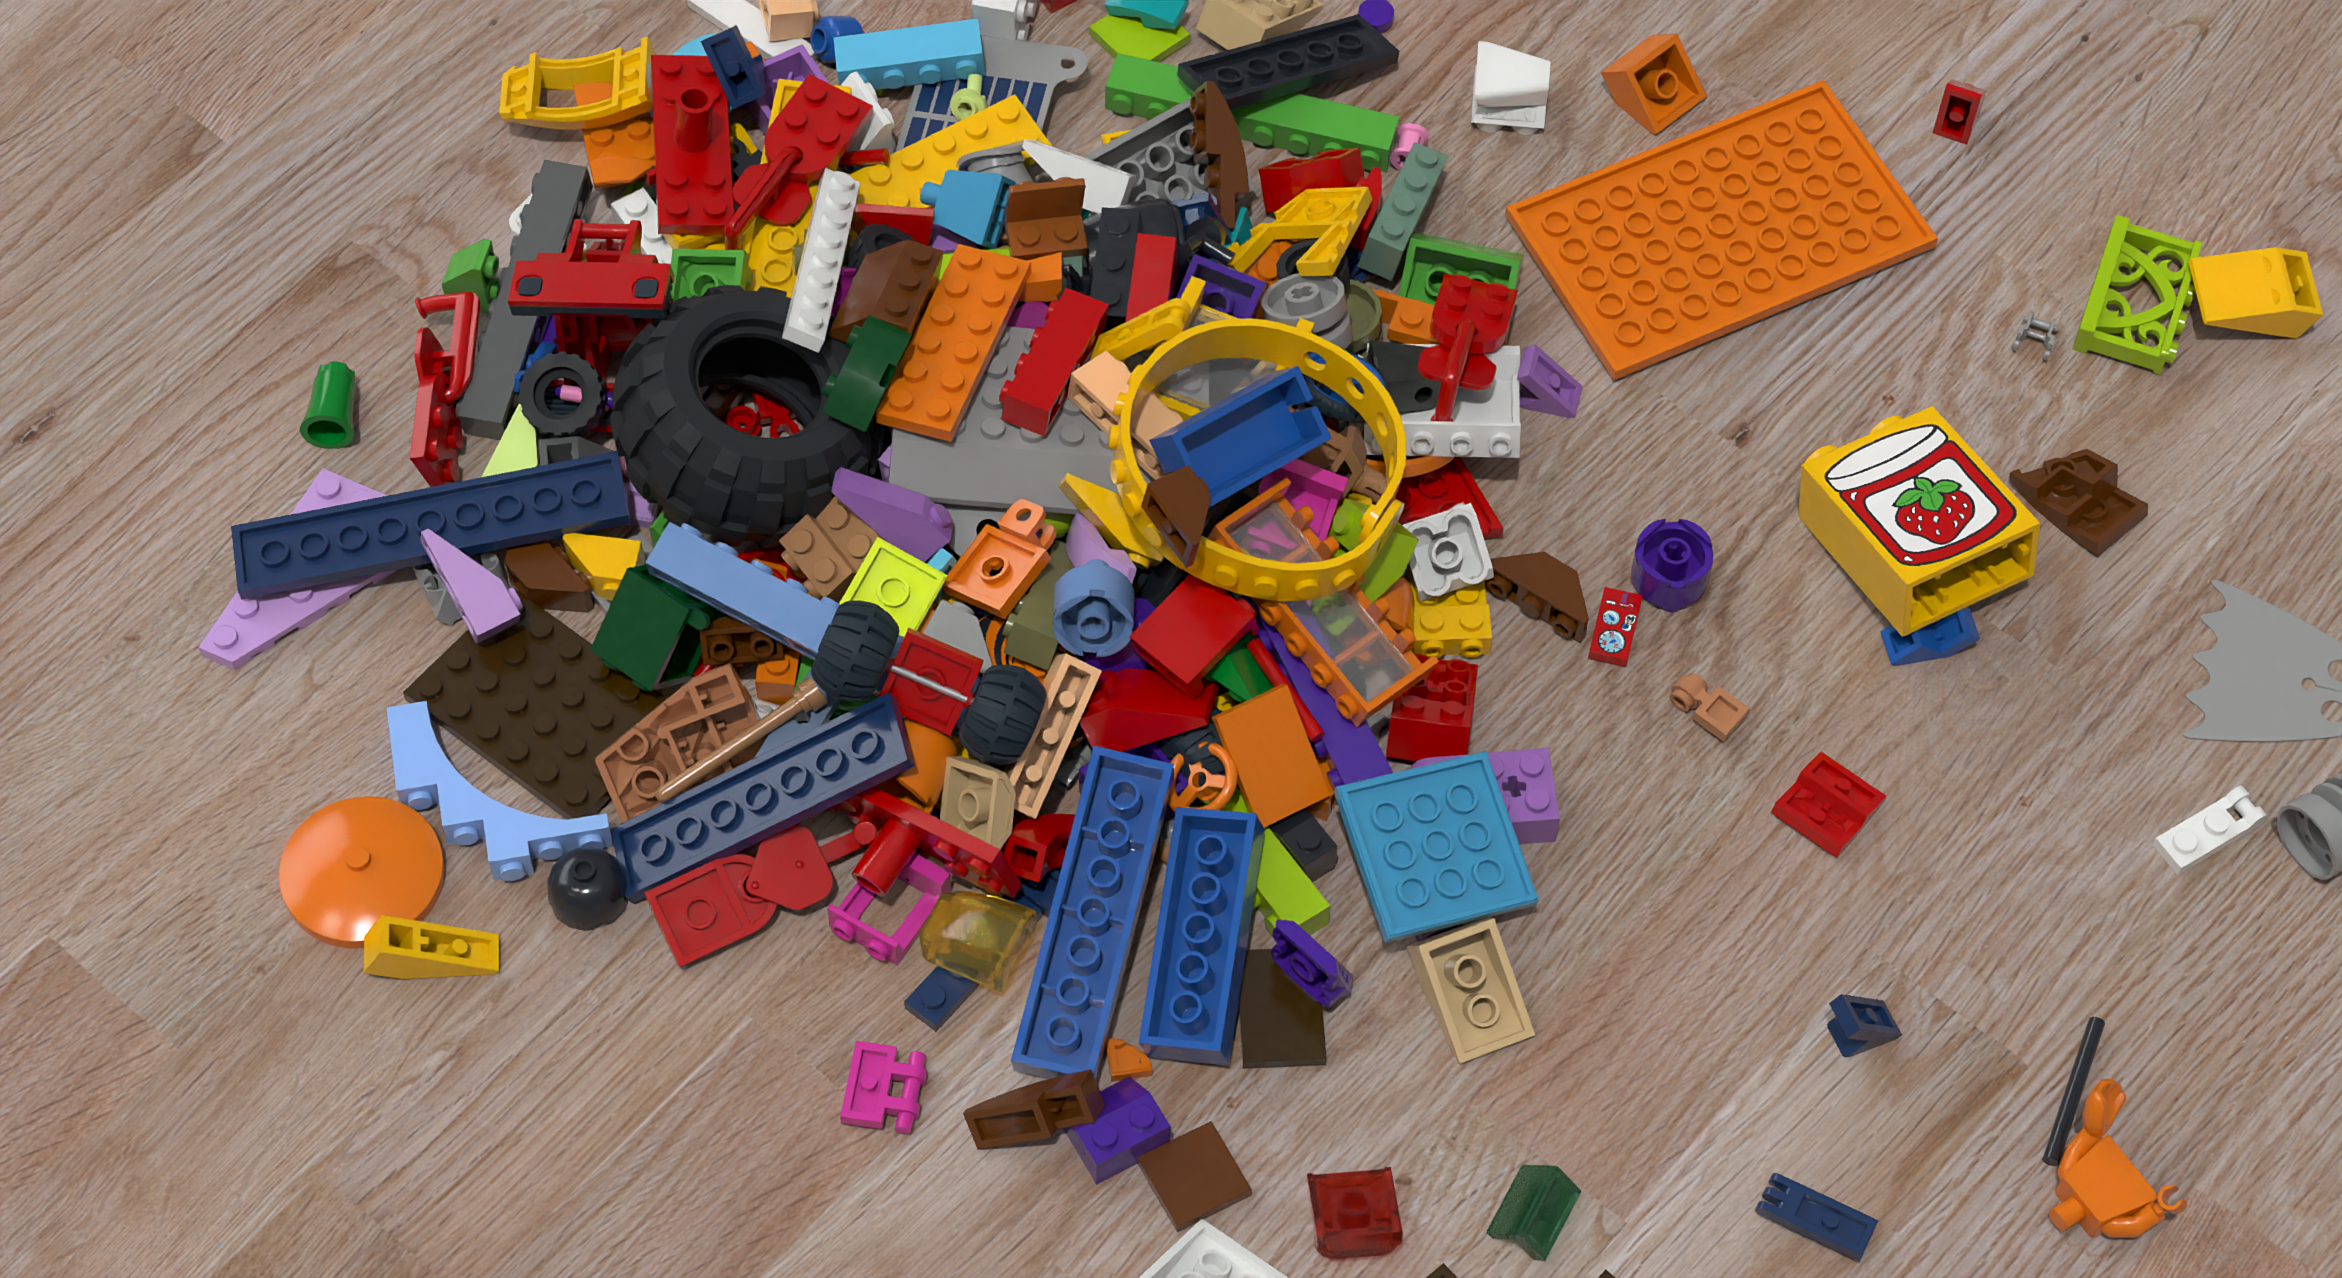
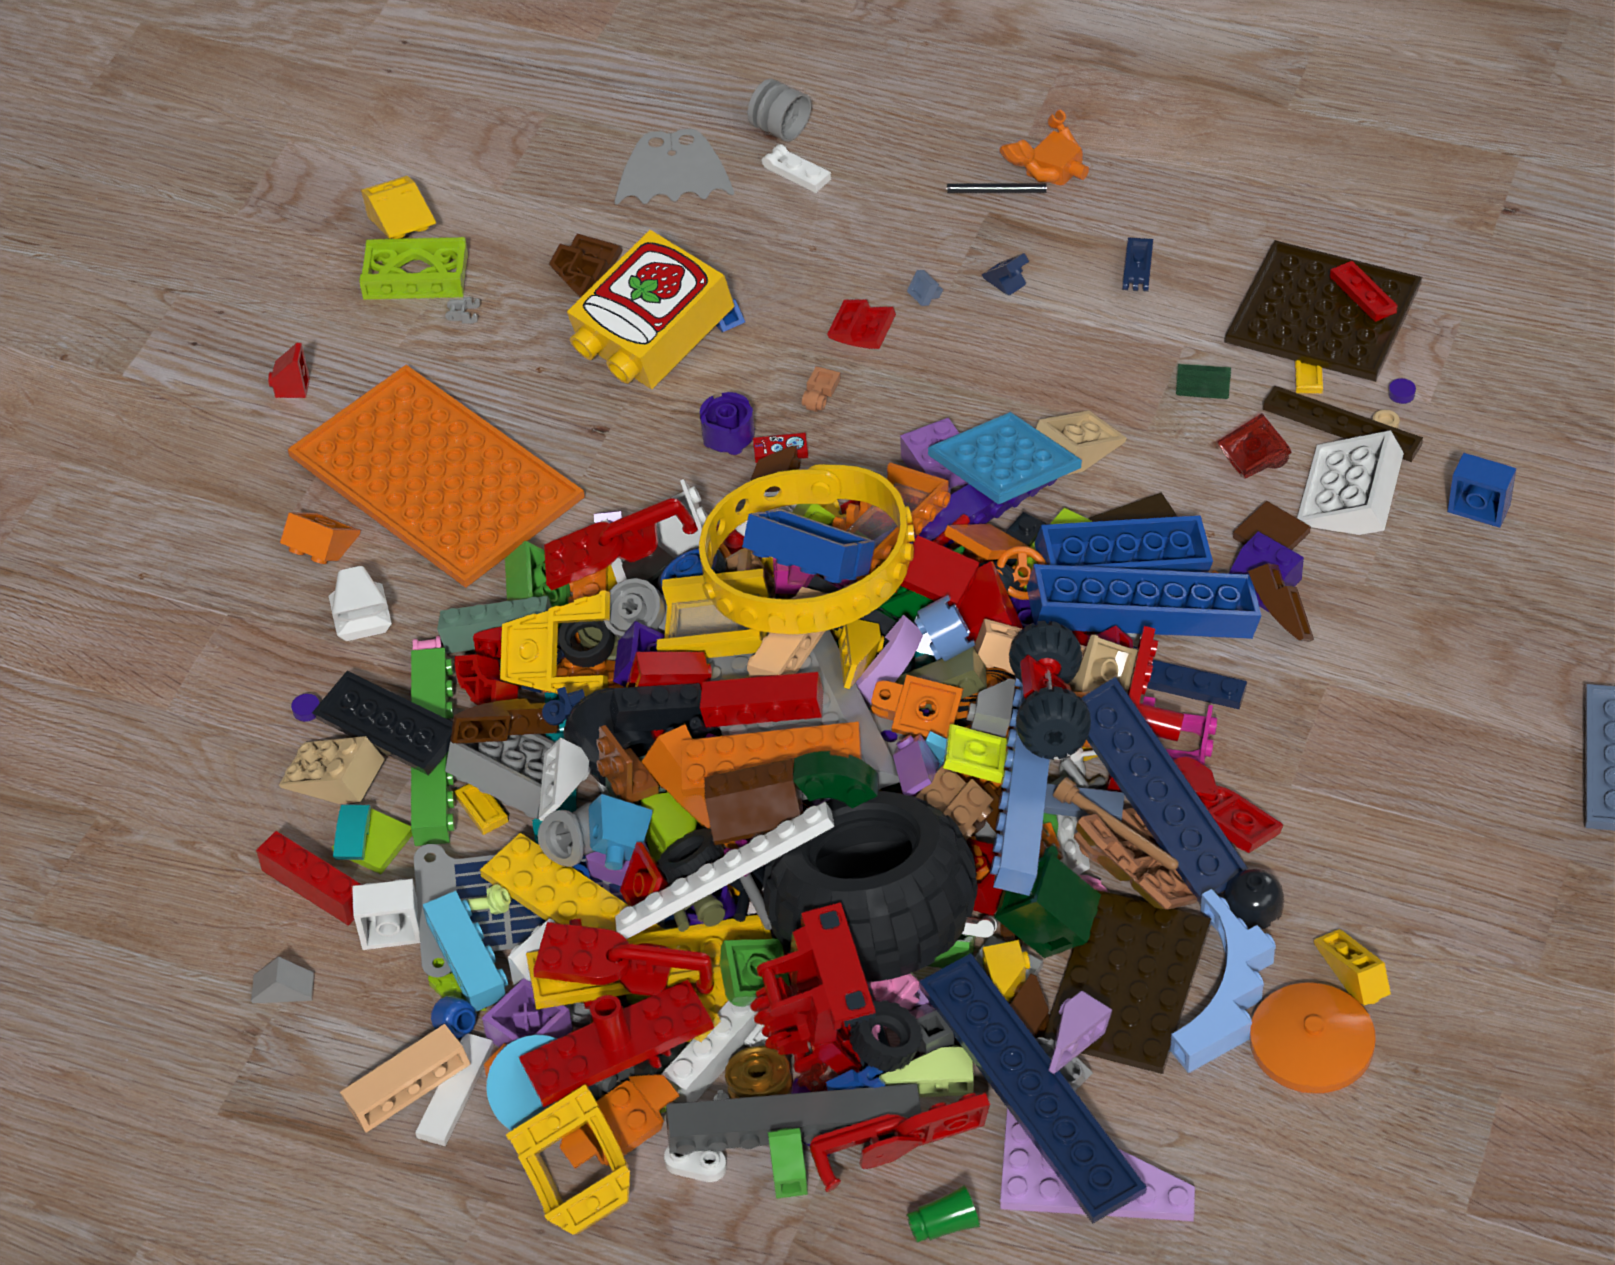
camera: 105 degrees left, 10 degrees down
(735, 68) = (538, 1029): dark blue slope -> none
(870, 1085) = (1304, 700): dark pink plate -> none
(977, 936) = (1181, 664): clear yellow slope -> none
(1144, 330) = (723, 647): yellow plate -> none
(1179, 510) = (895, 536): reddish brown slope -> none
(1206, 238) = (597, 678): black piece -> none
(1309, 964) = (1113, 496): dark purple slope -> none
(1864, 902) = (924, 288): none -> sand blue tile

